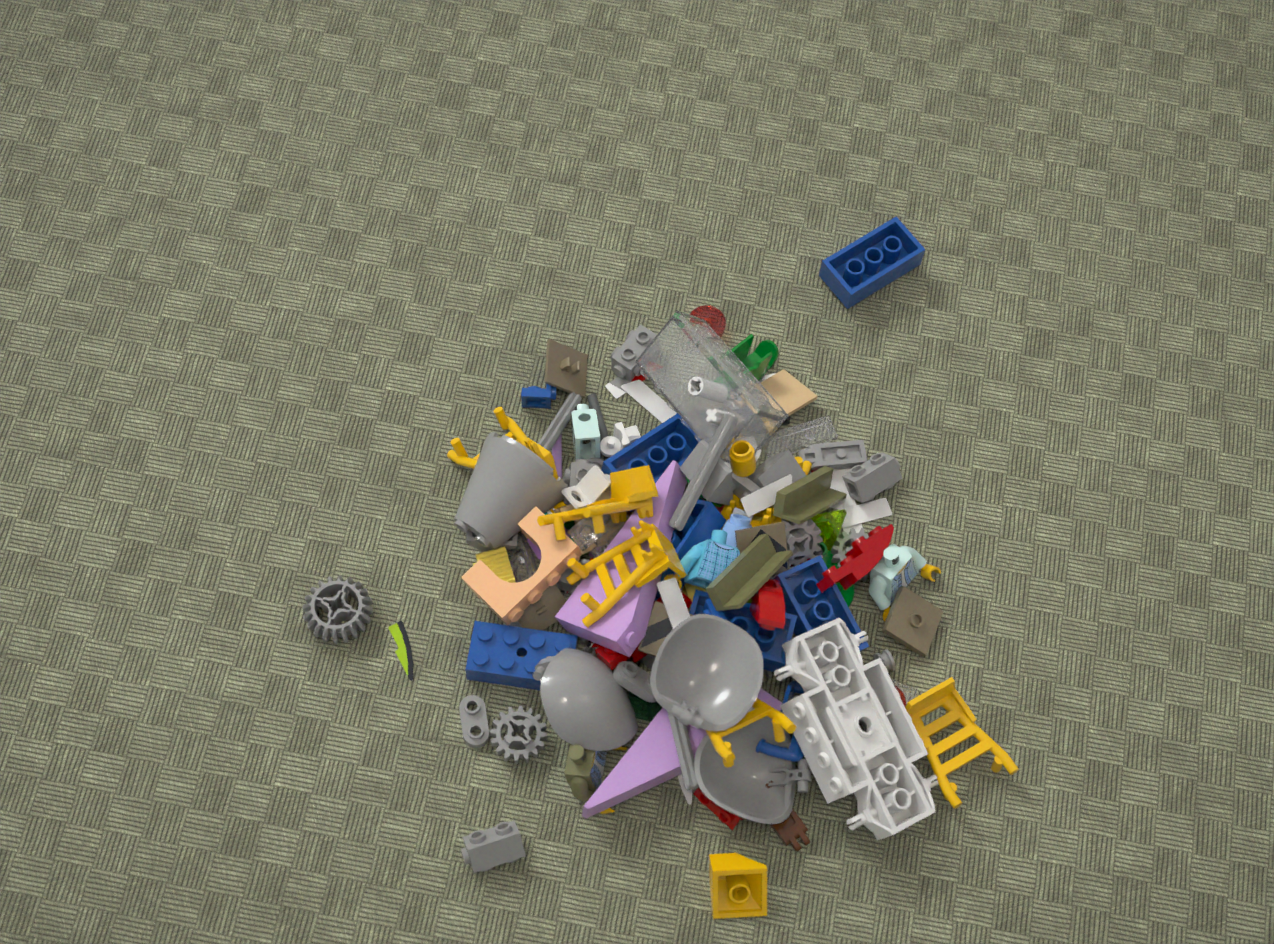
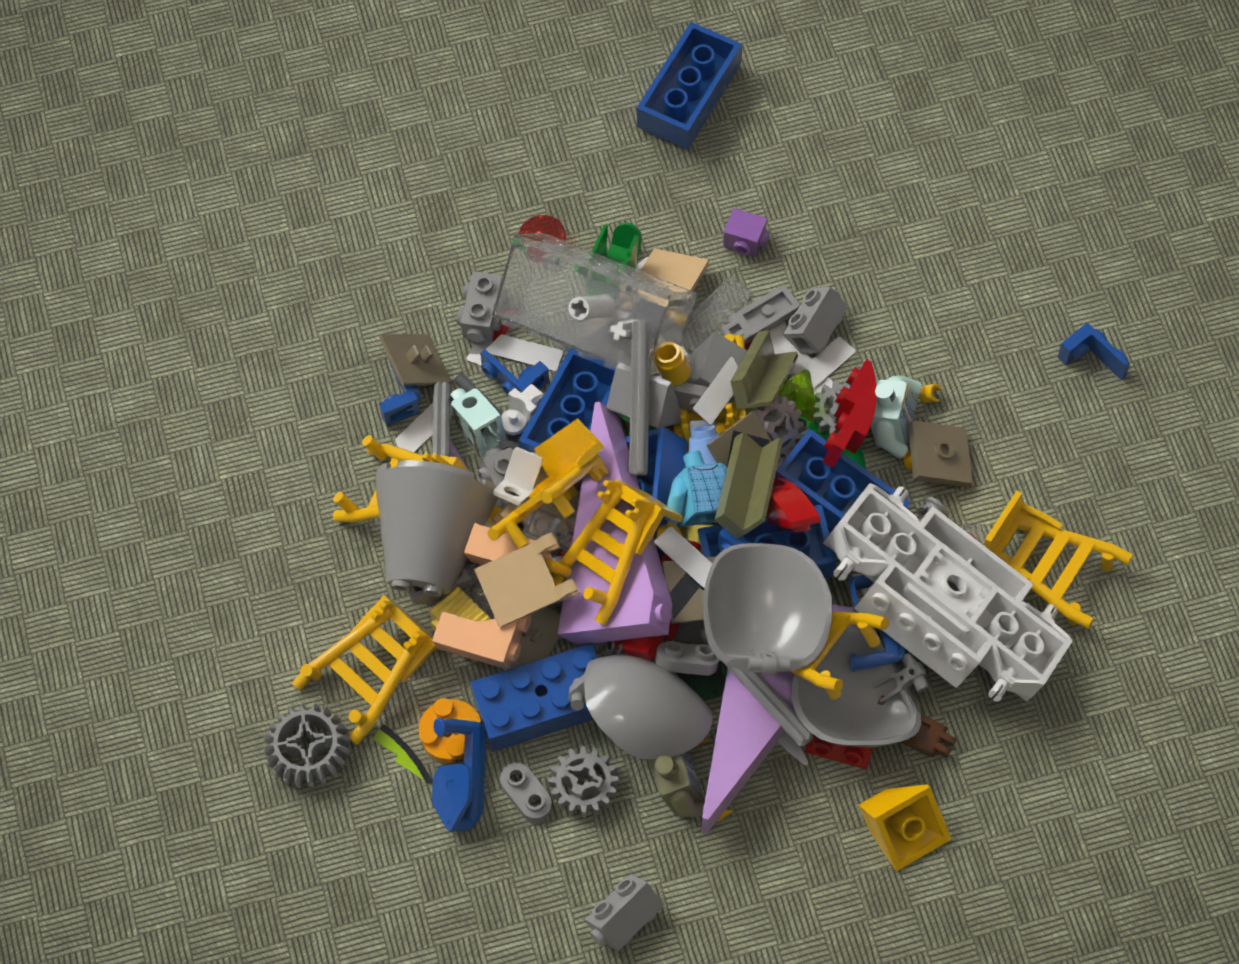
camera: 20 degrees left, 0 degrees up
(427, 692) = (460, 787): none -> blue piece
(442, 581) = (408, 660): none -> yellow hand
(449, 635) = (443, 748): none -> light orange plate
(539, 422) = (418, 431): none -> white sticker
(545, 566) = (522, 582): none -> tan flag
(644, 421) = (536, 375): none -> blue bracket
(855, 389) = (745, 233): none -> medium lavender brick
(1062, 589) = (1094, 340): none -> blue bracket

